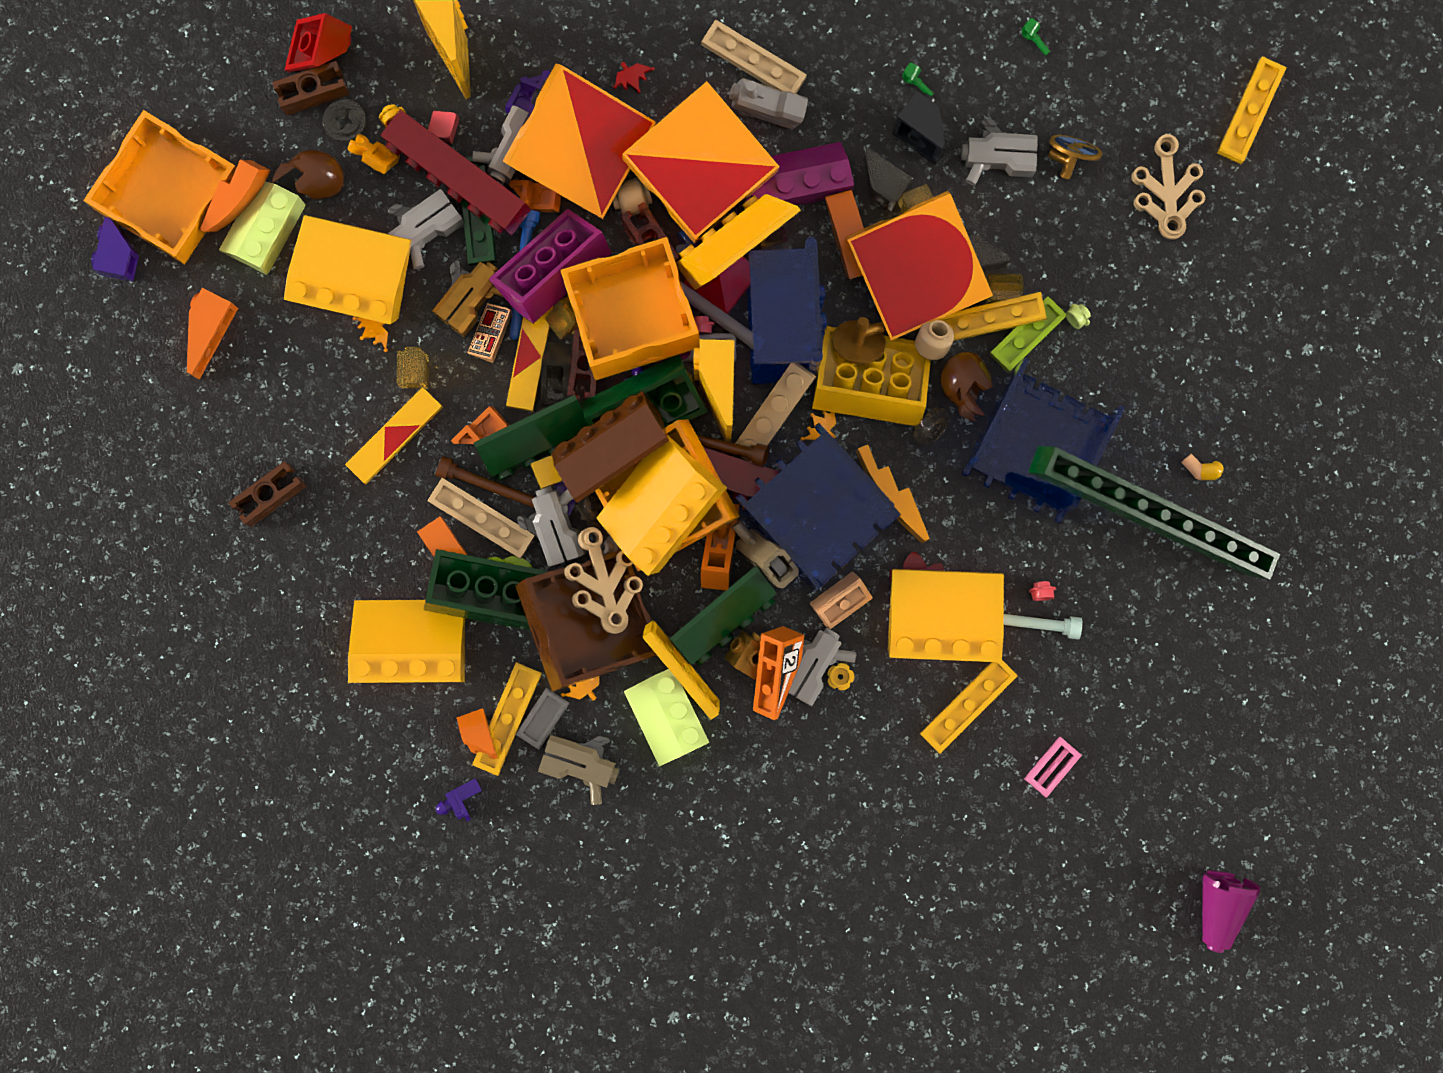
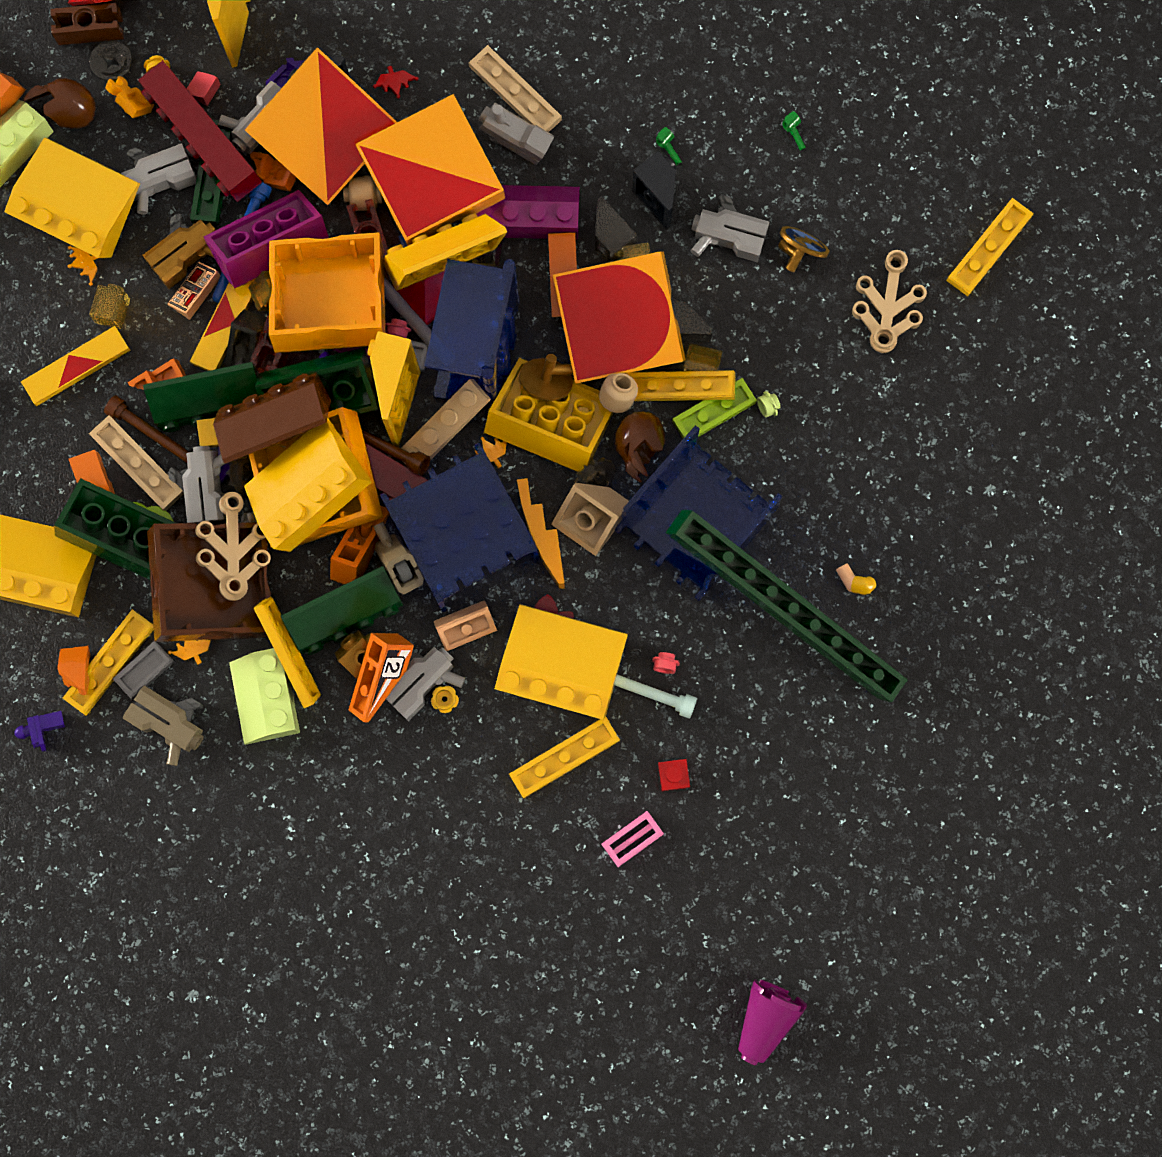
camera: 20 degrees right, 5 degrees down
(936, 465) = (590, 515): none -> tan slope
(1076, 696) = (674, 775): none -> red plate

